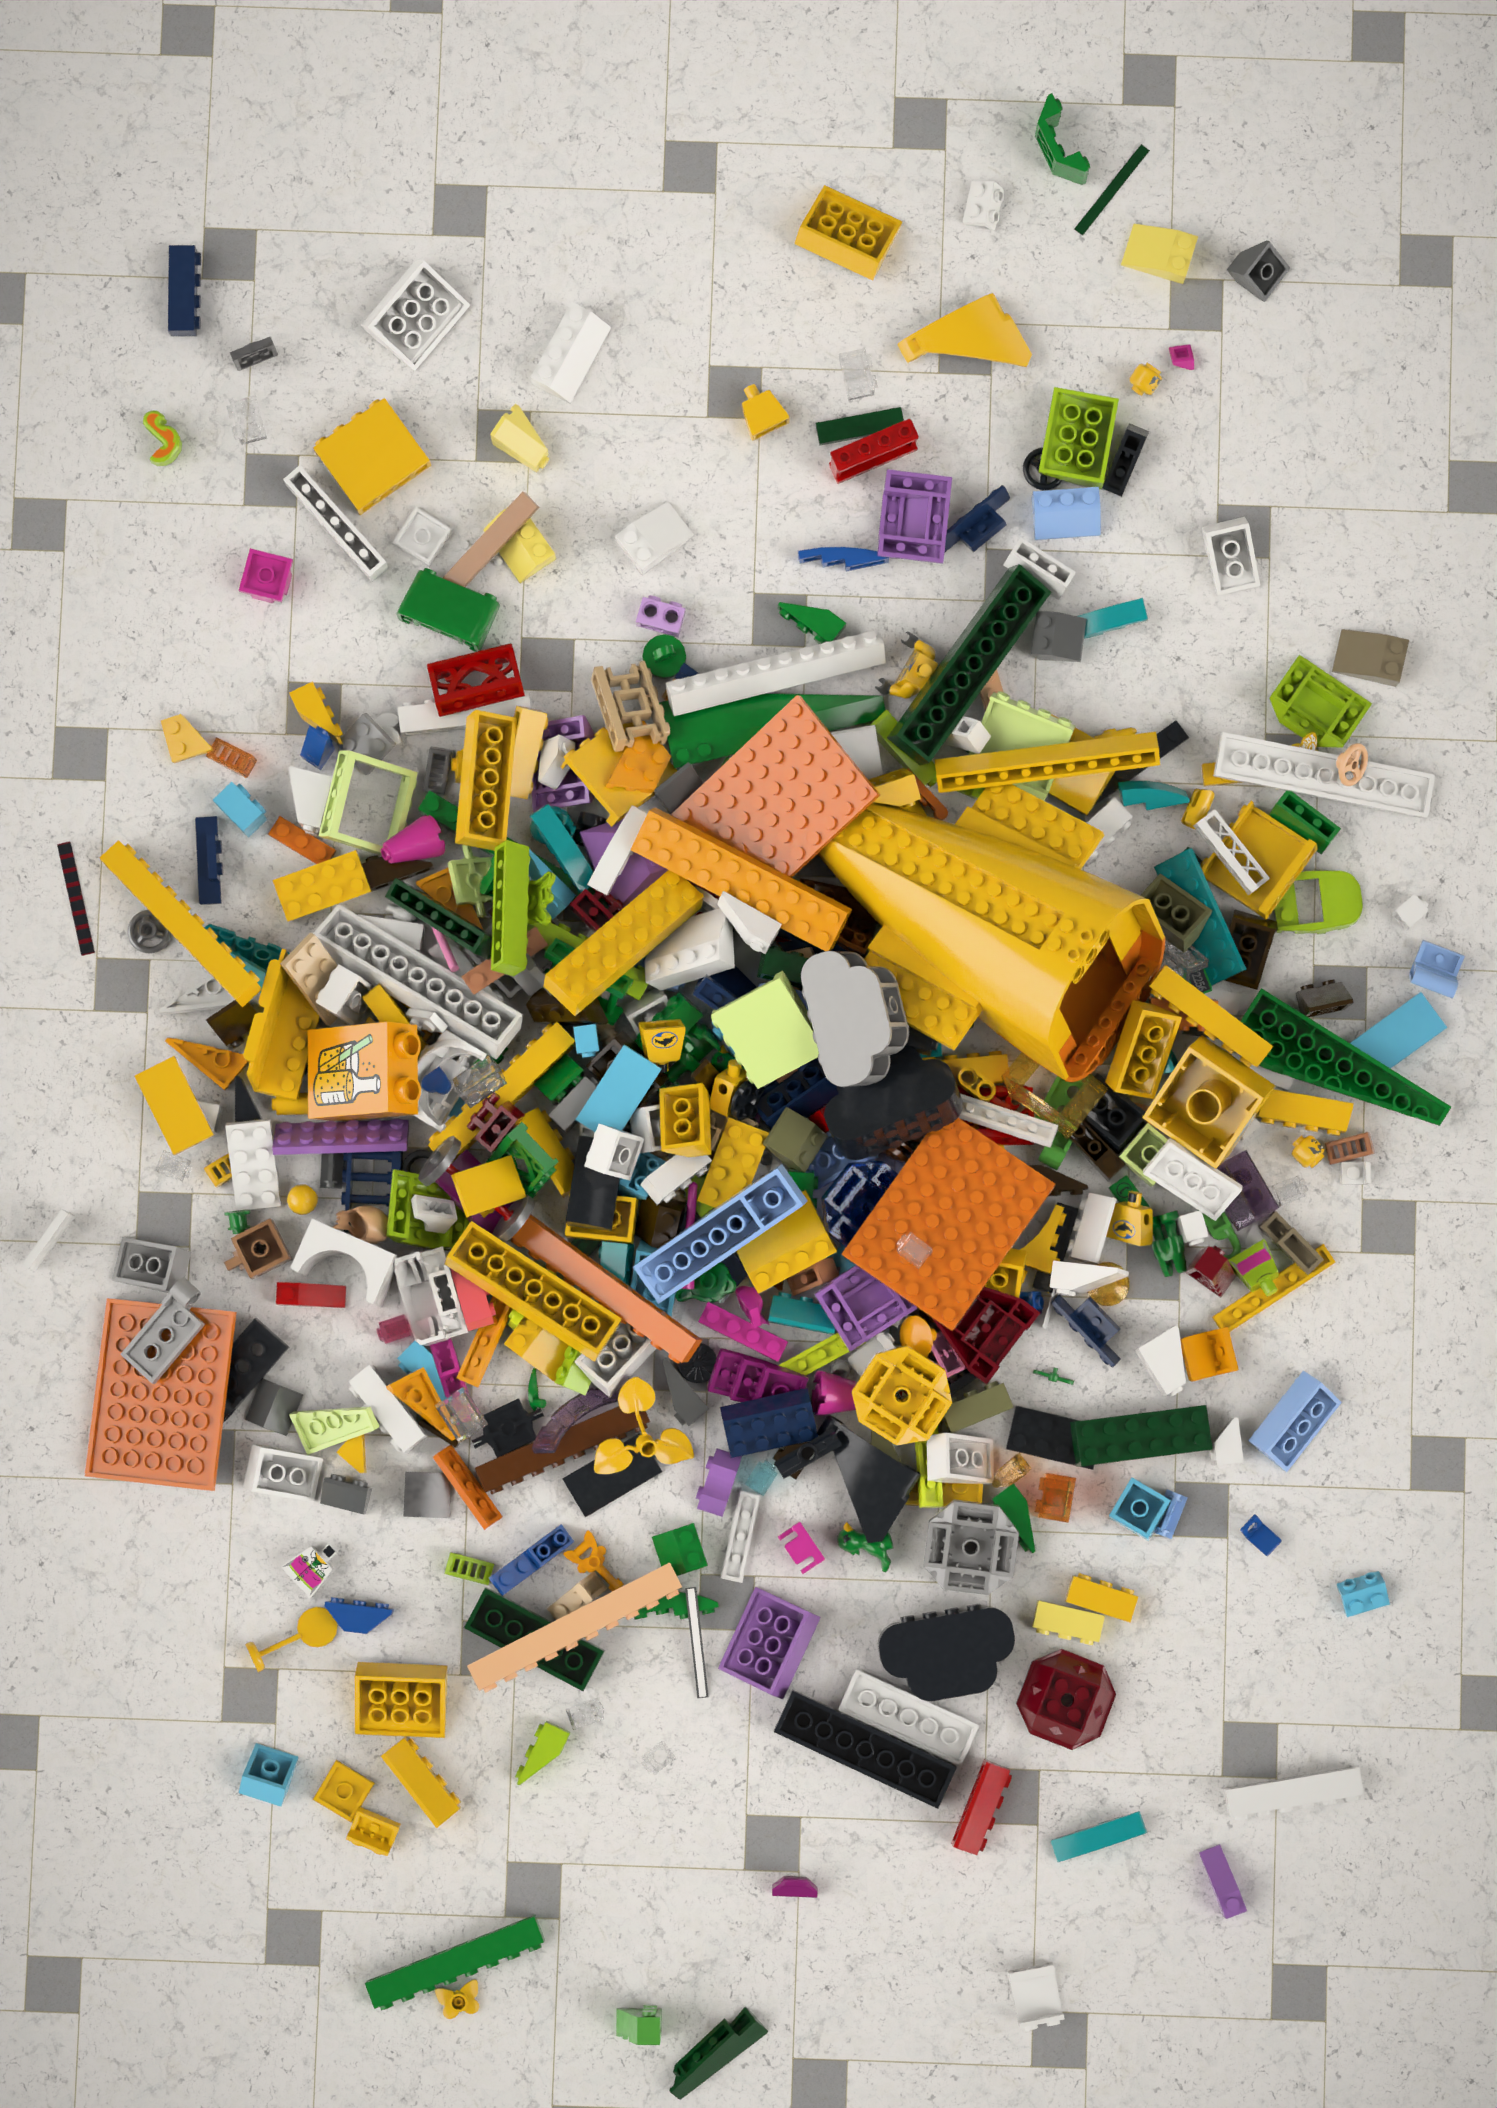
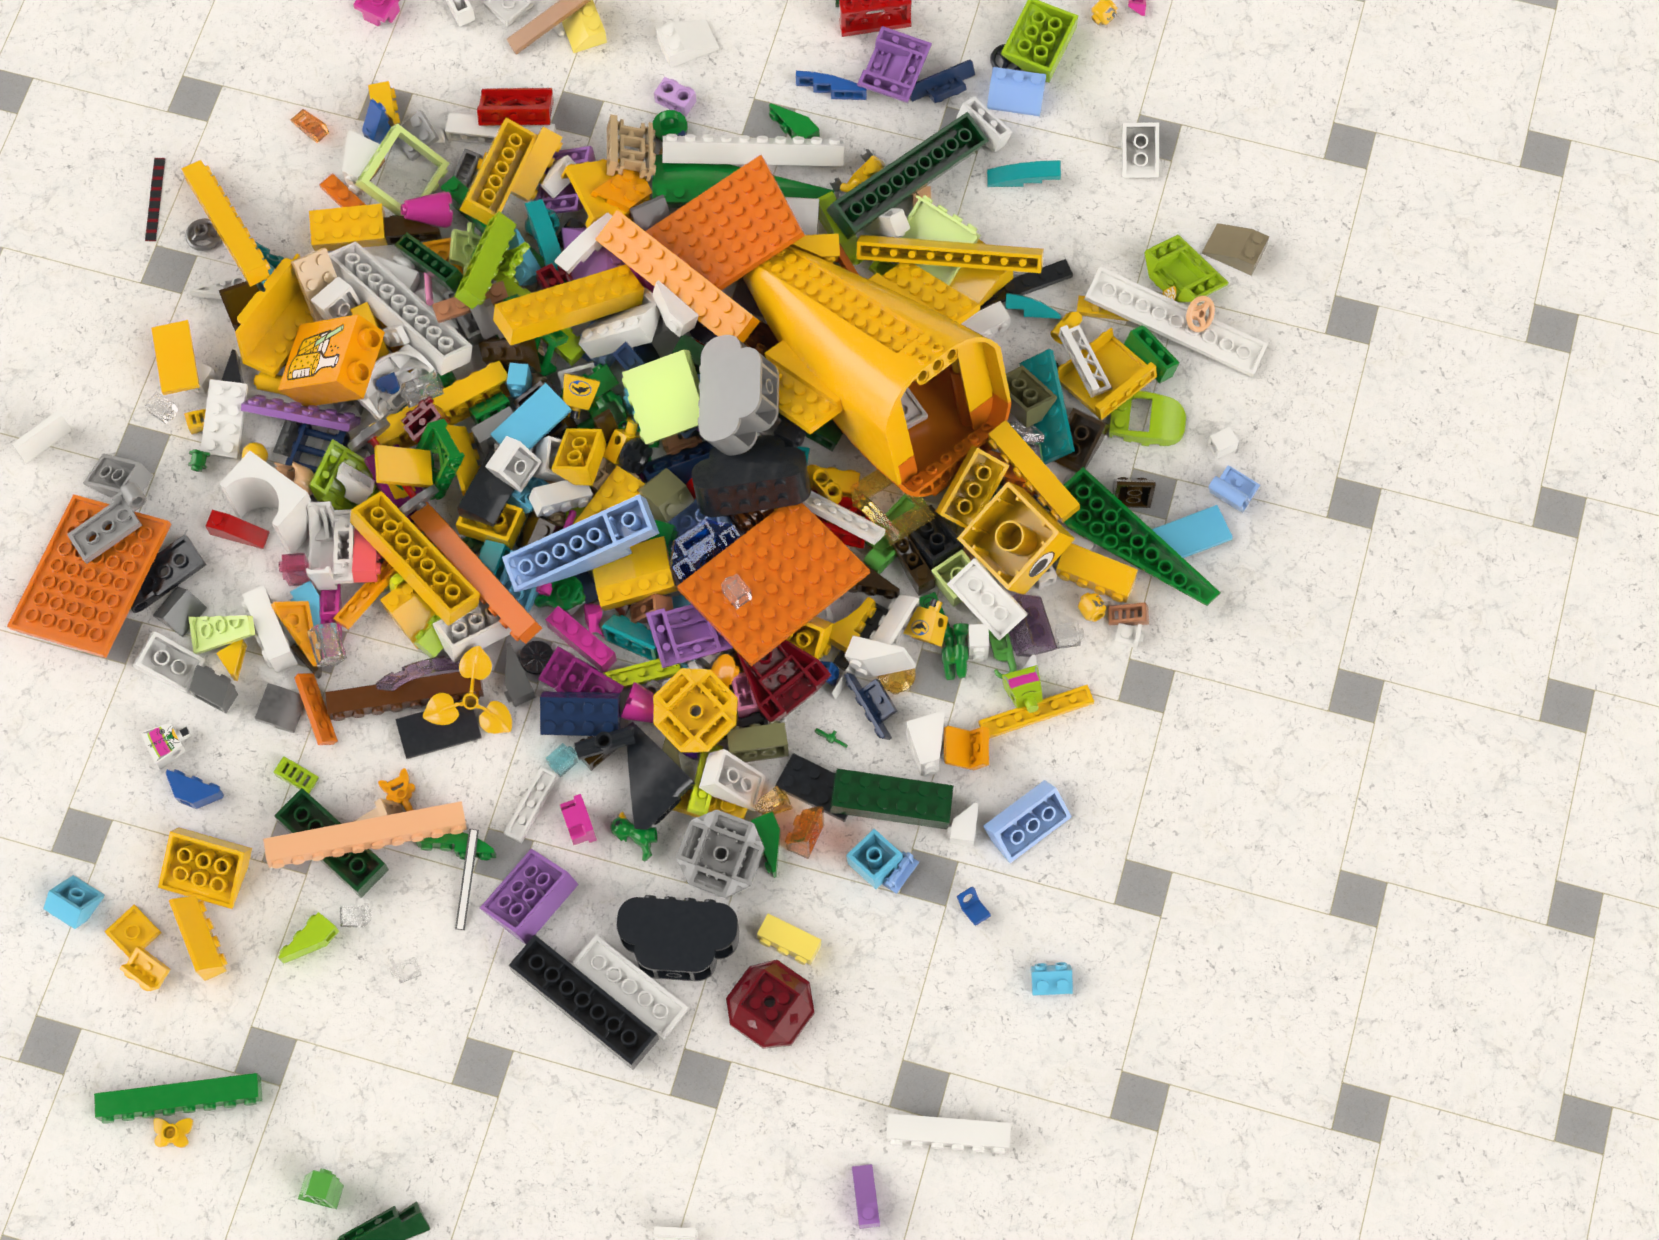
camera: 15 degrees right, 15 degrees down
(183, 739) = (276, 104): yellow wing -> none
(208, 861) = (266, 193): dark blue bracket -> none
(215, 1063) = (217, 337): light orange wing -> none
(240, 809) = (303, 157): medium azure brick -> none
(257, 1263) = (204, 484): medium nougat hinge -> none
(314, 1627) = (153, 794): yellow piece -> none
(449, 609) = (511, 54): green windscreen -> none
(508, 1428) = (363, 668): black plate -> none
(531, 1560) = (349, 780): blue slope -> none
(533, 1398) = (393, 653): green bar -> none
(681, 1549) = (478, 801): green slope -> none
(719, 1482) = (525, 754): medium lavender brick -> none
(794, 1887) = (489, 1105): magenta slope -> none
(980, 1807) = (669, 1076): red slope -> none
(1058, 636) = (985, 175): dark grey slope -> none
(1098, 1836) = (766, 1128): teal slope -> none
(1101, 1597) = (823, 926): yellow brick -> none
(1125, 459) = (1073, 64): black slope -> none
(1212, 1270) = (985, 675): dark red wedge -> none
(1290, 1242) = (1059, 675): dark tan slope -> none

